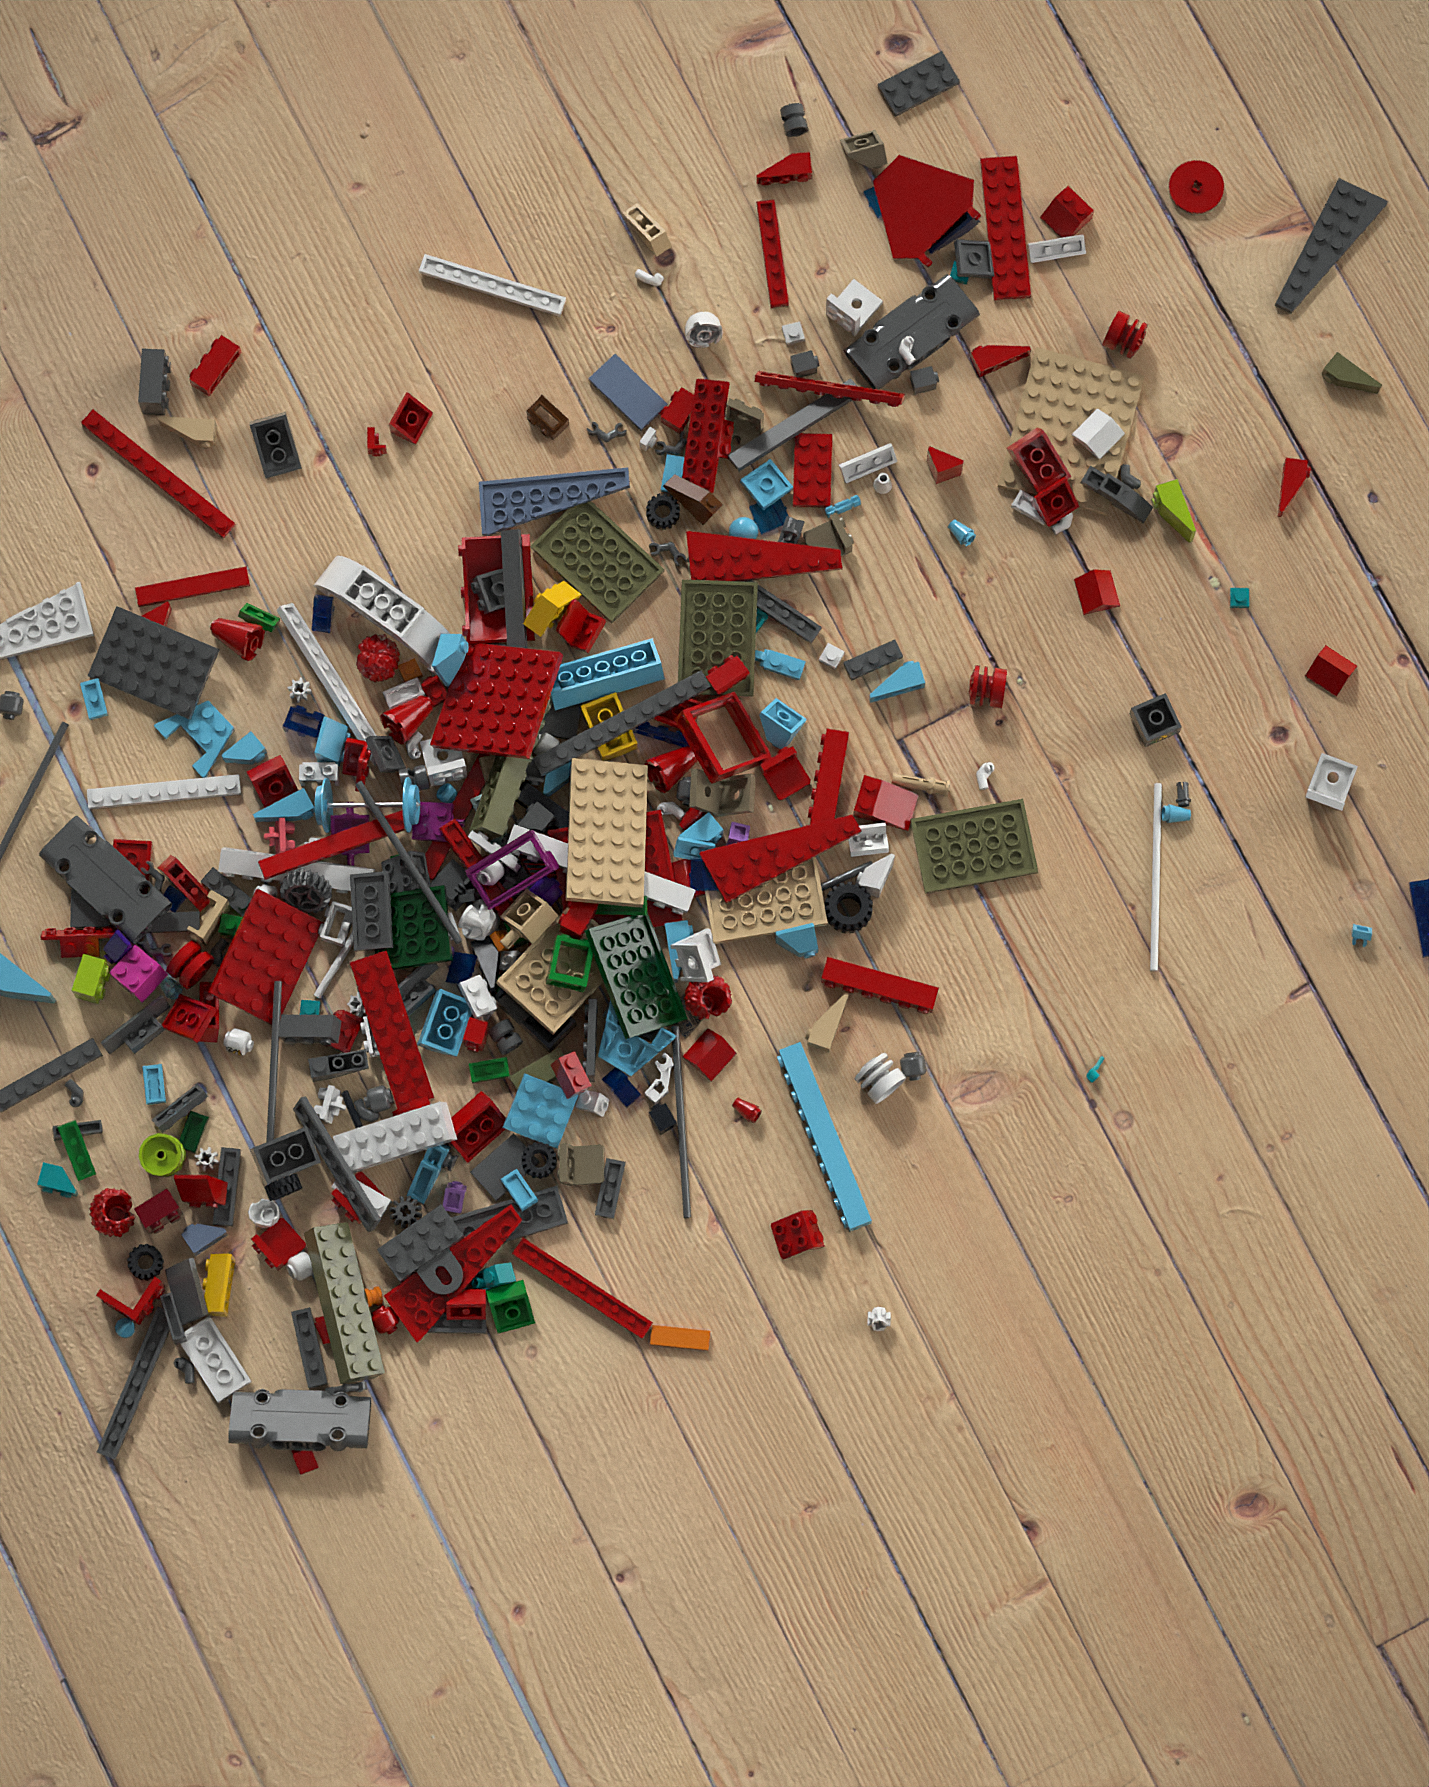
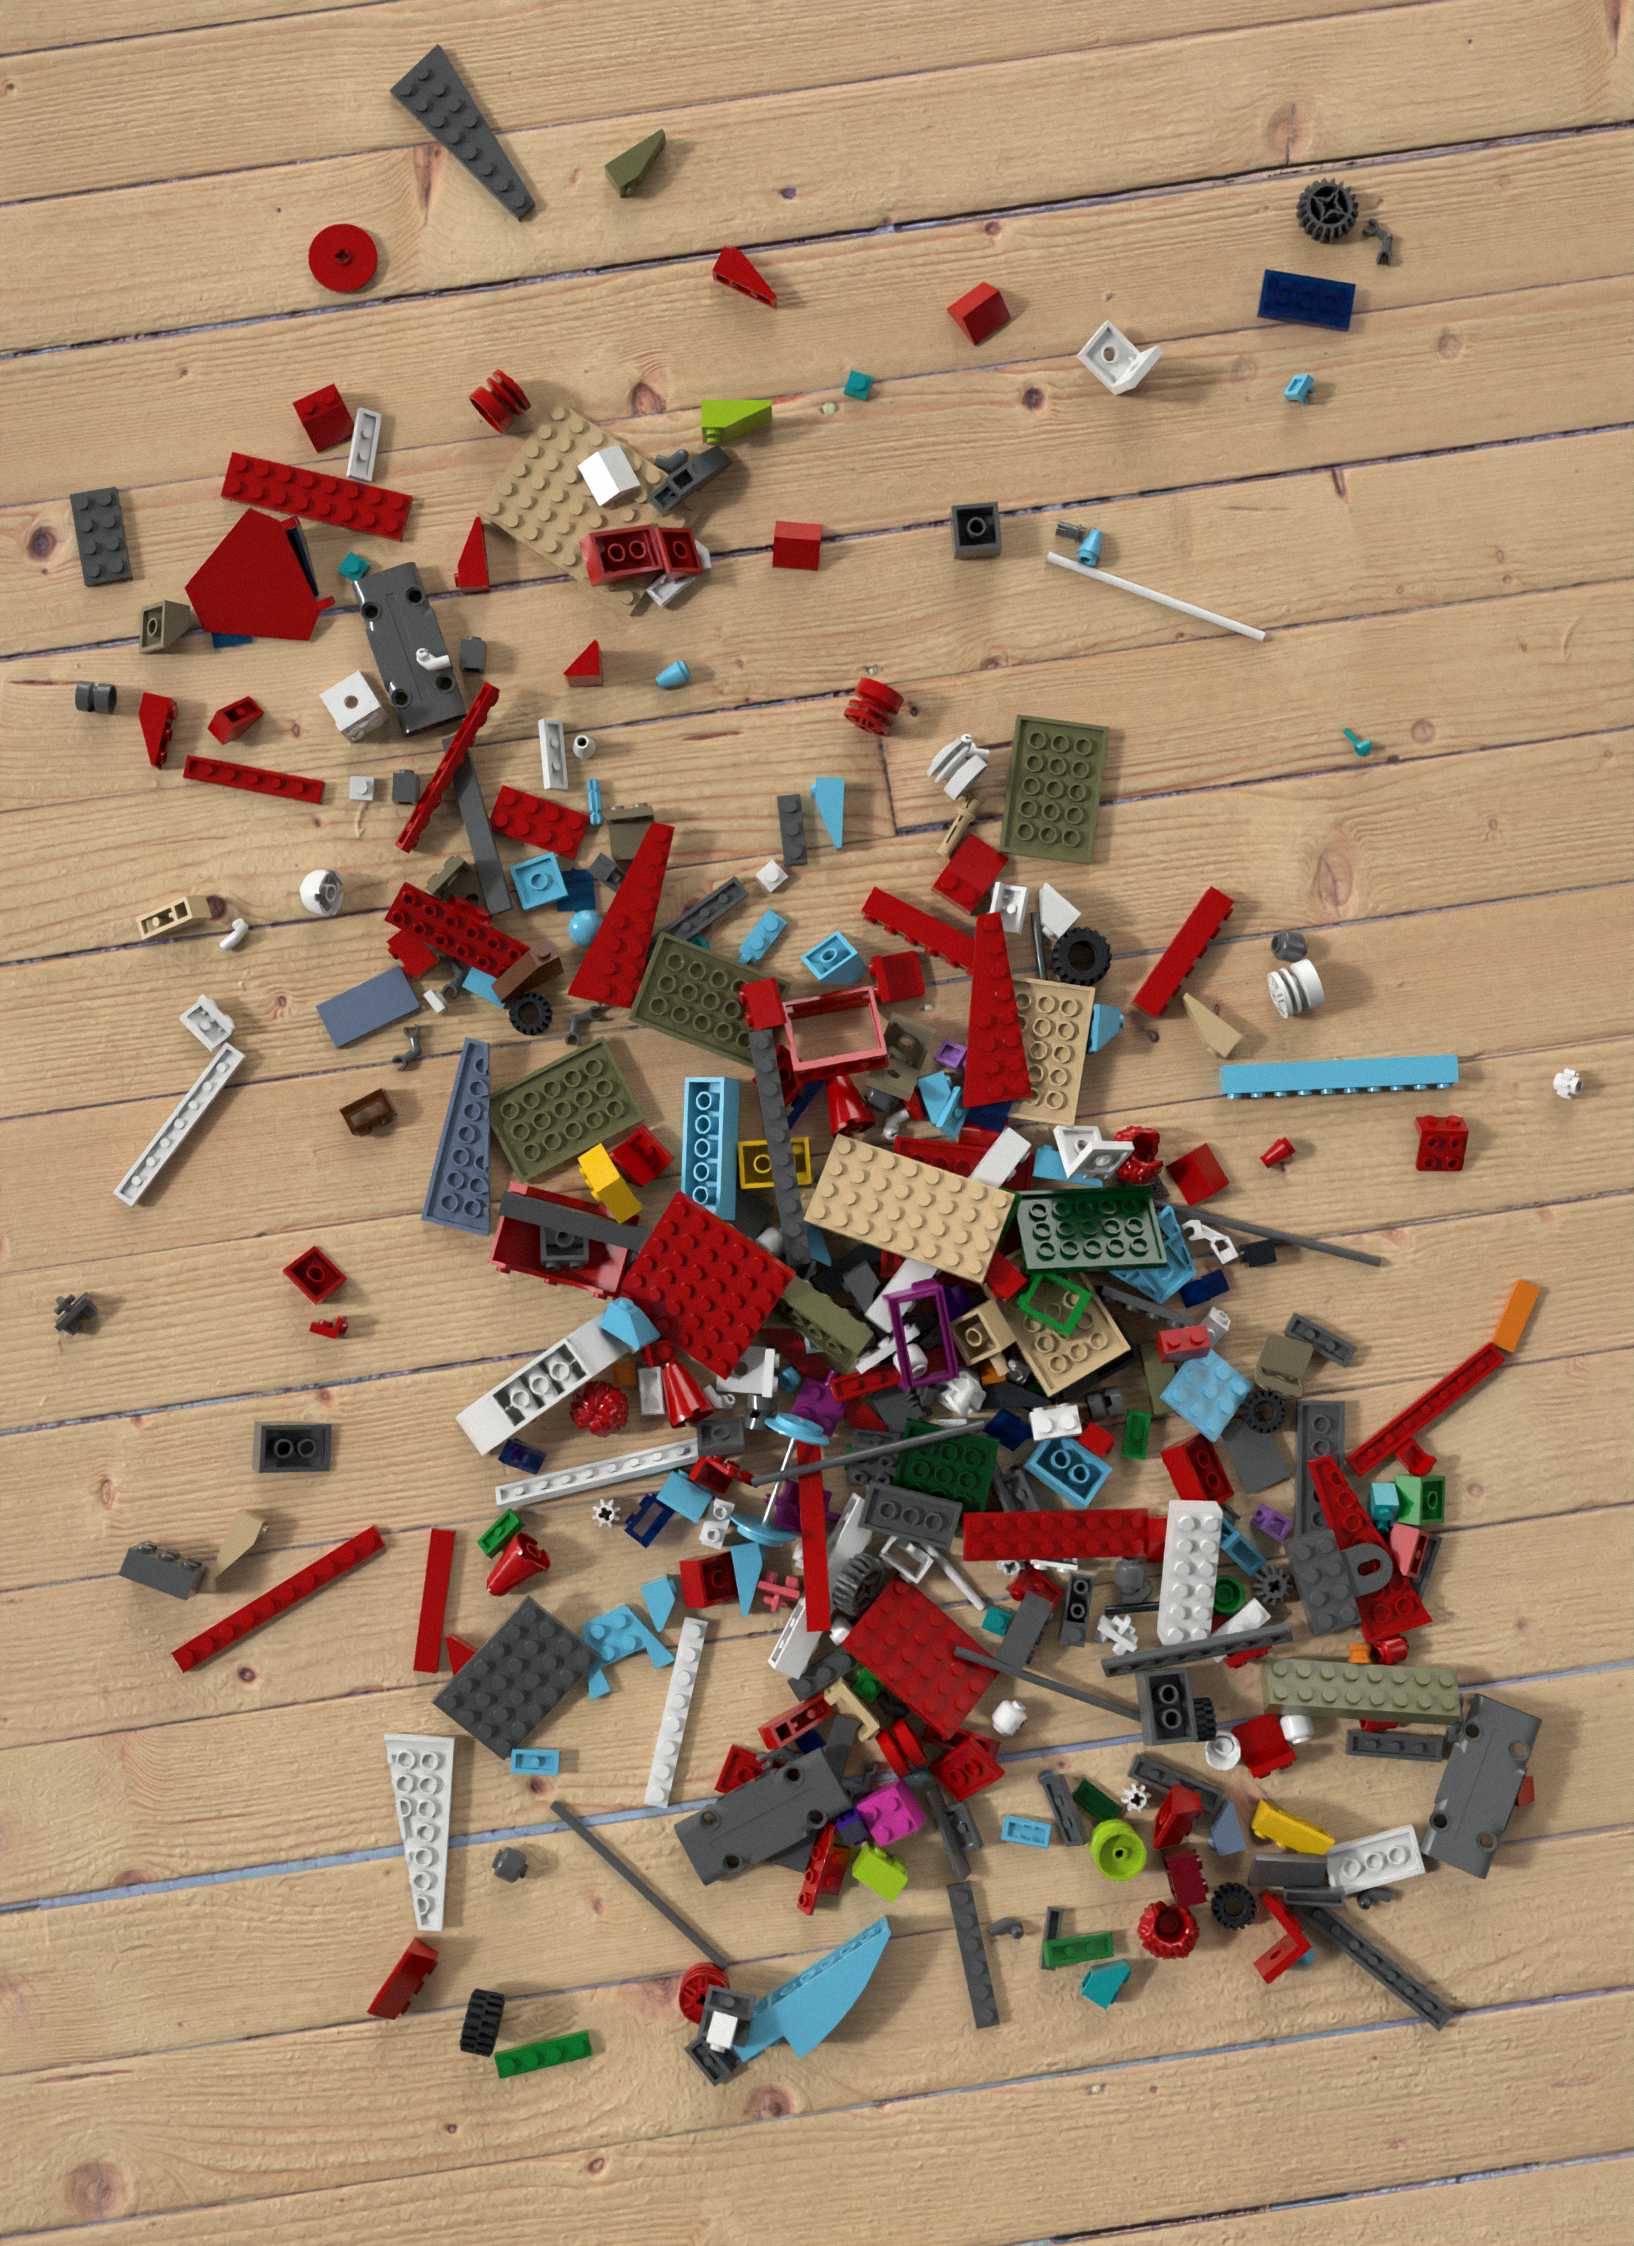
camera: 80 degrees left, 10 degrees up
(214, 365) = (166, 1489): red brick -> none
(332, 260) = (67, 1319): none -> dark grey hips
(385, 1179) = (1228, 1596): none -> green hat
(519, 1190) = (1290, 1445): medium azure tile -> none
(541, 1291) = (1414, 1458): none -> red bracket
(575, 280) = (208, 1023): none -> white bracket
(812, 224) = (234, 720): none -> red slope
(961, 764) = (956, 769): none -> white wheel
(973, 259) = (343, 546): dark grey tile -> none

